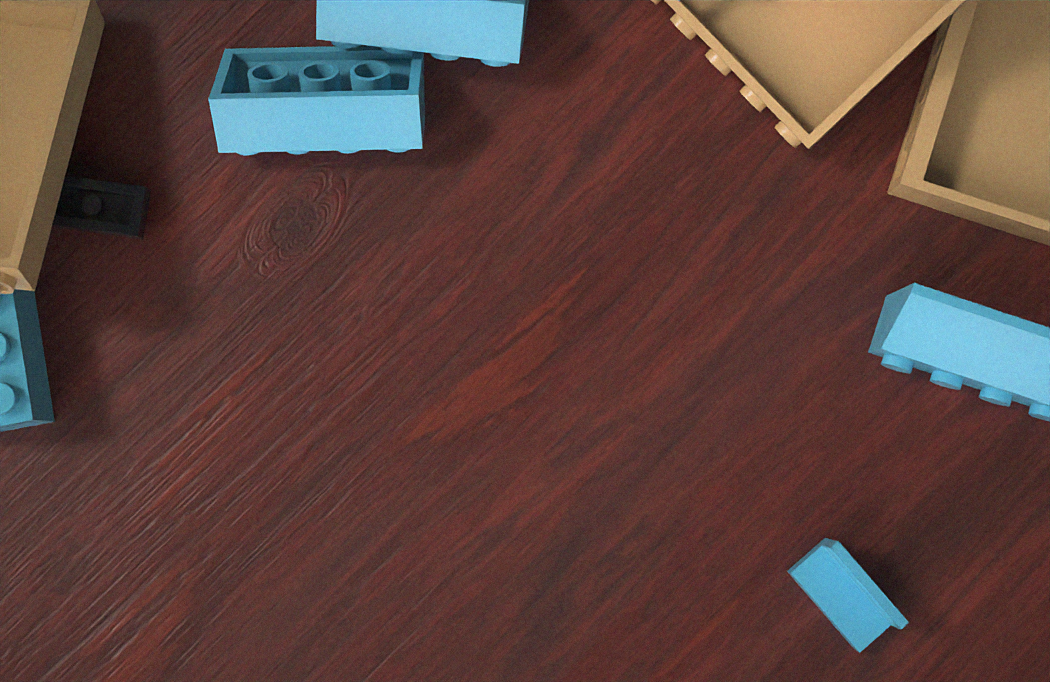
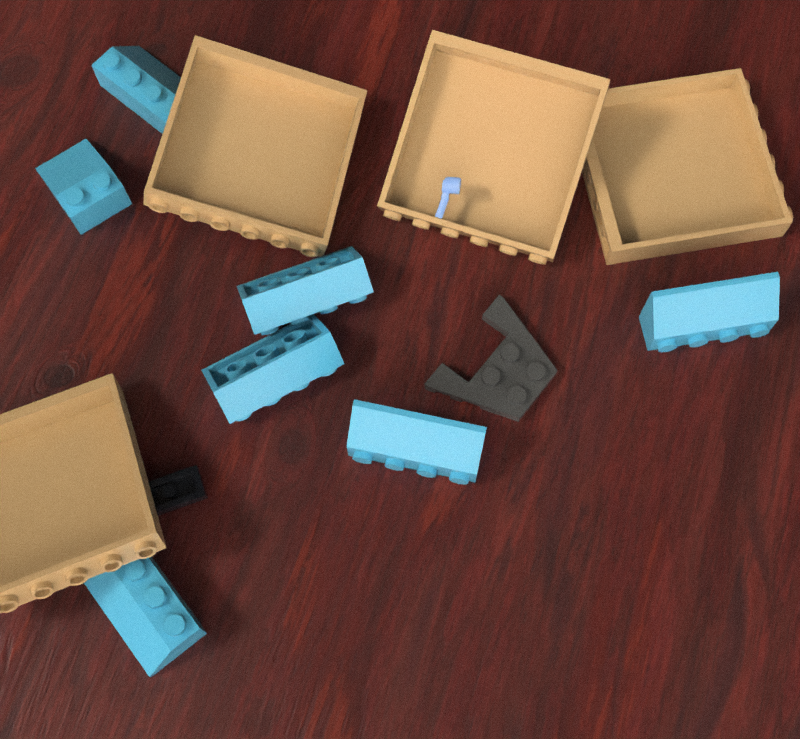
camera: 30 degrees left, 15 degrees down
(456, 316) = (415, 442): none -> medium azure slope
(650, 286) = (509, 377): none -> dark grey wing
(846, 594) = (717, 482): medium azure panel -> none

